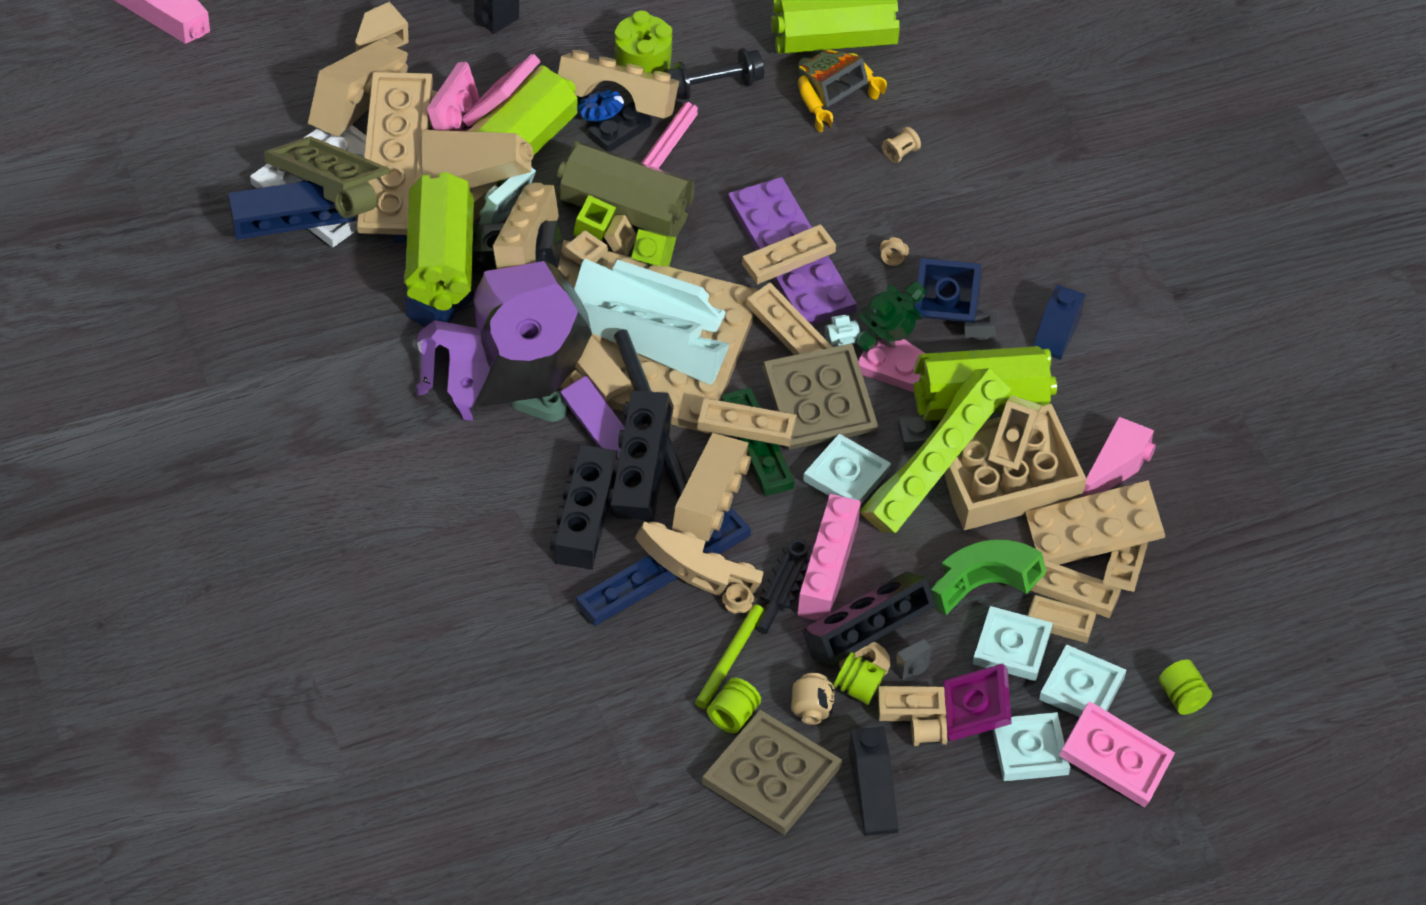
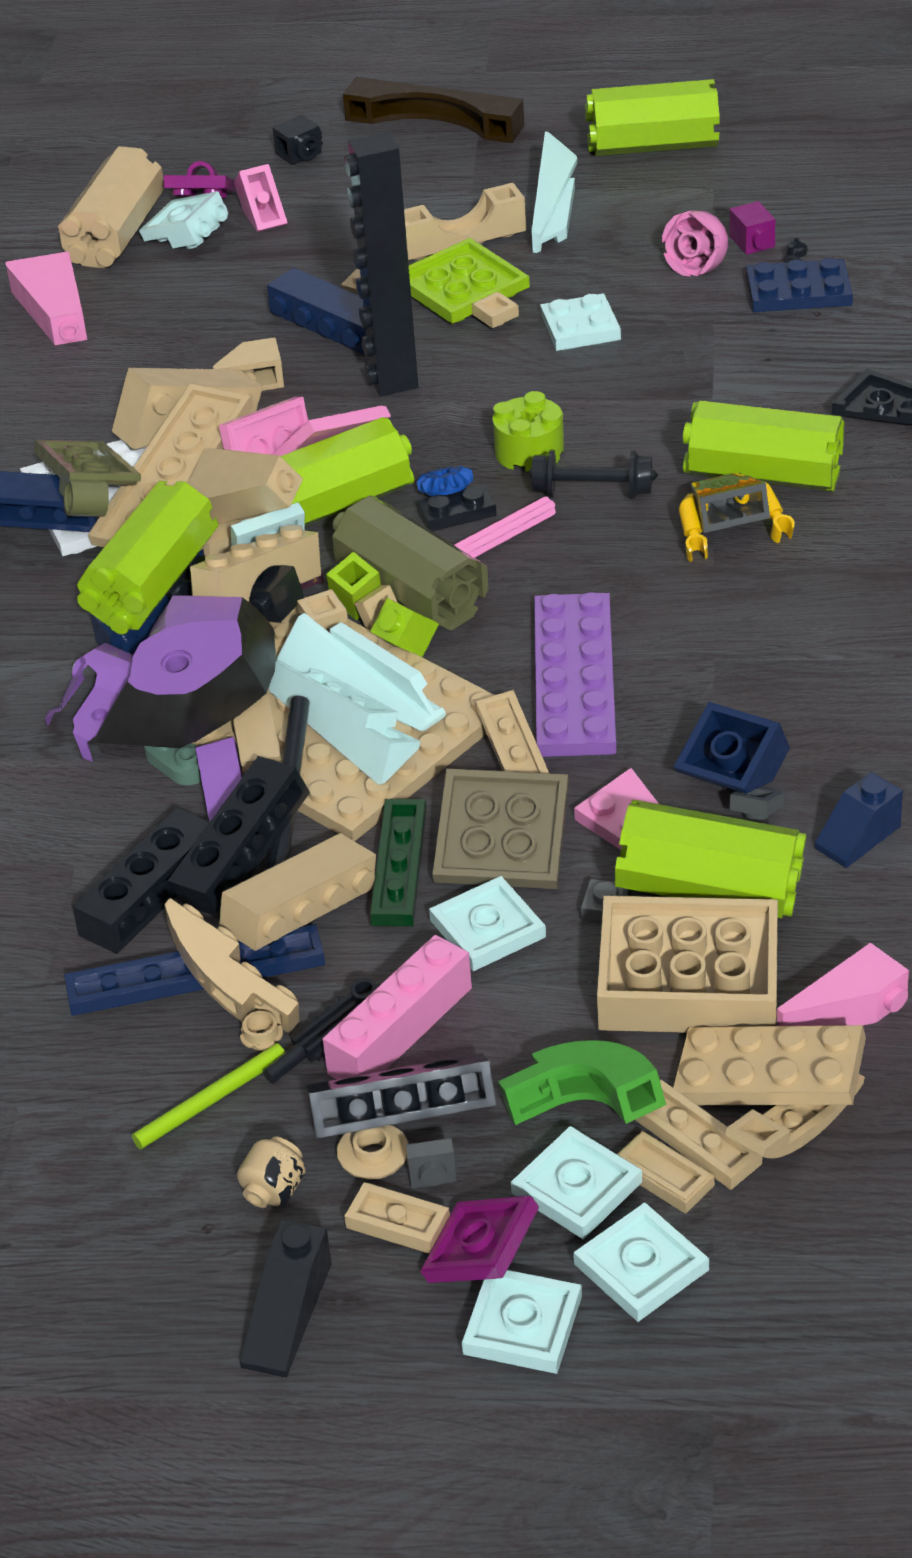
camera: 30 degrees right, 10 degrees down
(652, 93) = (500, 473): tan arch -> none
(734, 705) = (167, 1151): lime piece -> none
(746, 422) = (389, 832): tan plate -> none
(772, 772) = (166, 1248): dark tan plate -> none
(788, 254) = (557, 667): tan plate -> none
(842, 331) = (578, 765): light aqua gear -> none
(859, 678) = (341, 1163): lime piece -> none
(891, 316) = (635, 756): dark green piece -> none
(893, 257) = (689, 698): tan plate -> none
(901, 145) = (761, 590): tan bush -> none
(908, 487) = (591, 914): lime arch -> none
(929, 730) = (397, 1257): tan bush -> none
(1014, 432) = (701, 914): tan slope -> none
(1116, 754) = (630, 1364): bright pink plate -> none
(1185, 687) = (779, 1305): lime piece -> none

